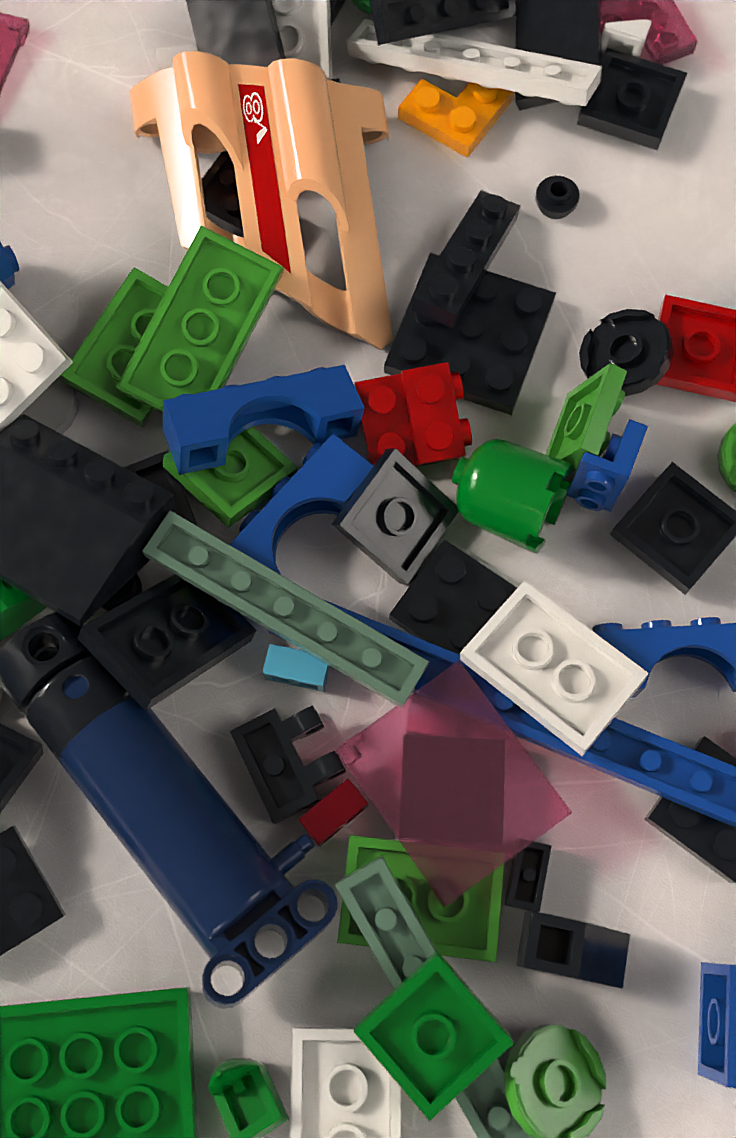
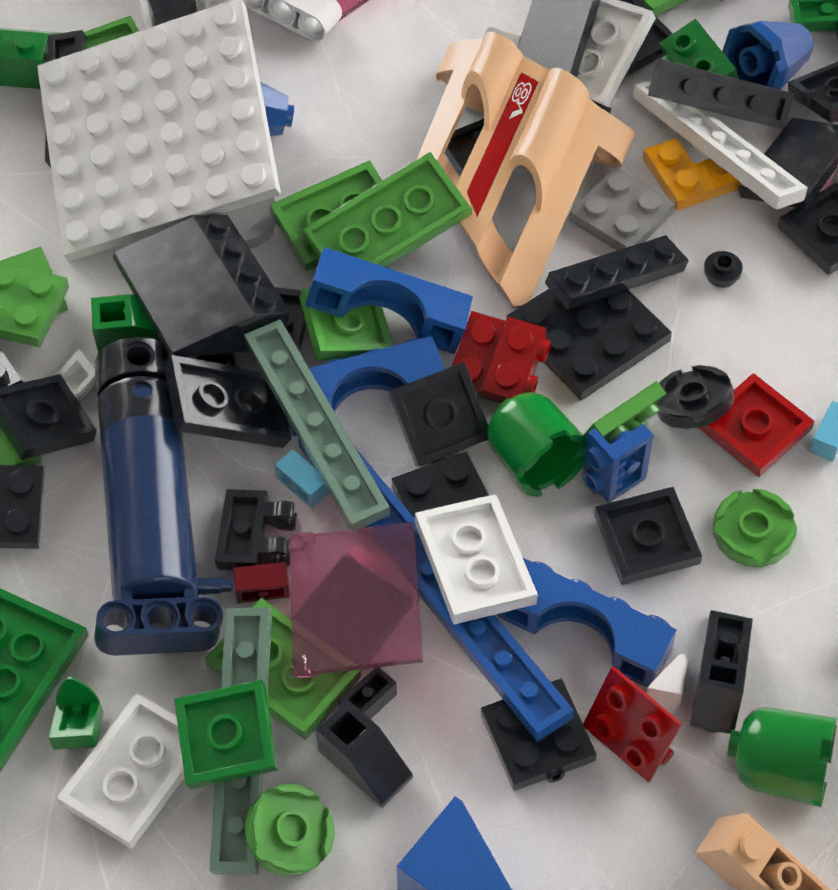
camera: 30 degrees right, 15 degrees down
(418, 187) = (621, 210): none -> light grey plate

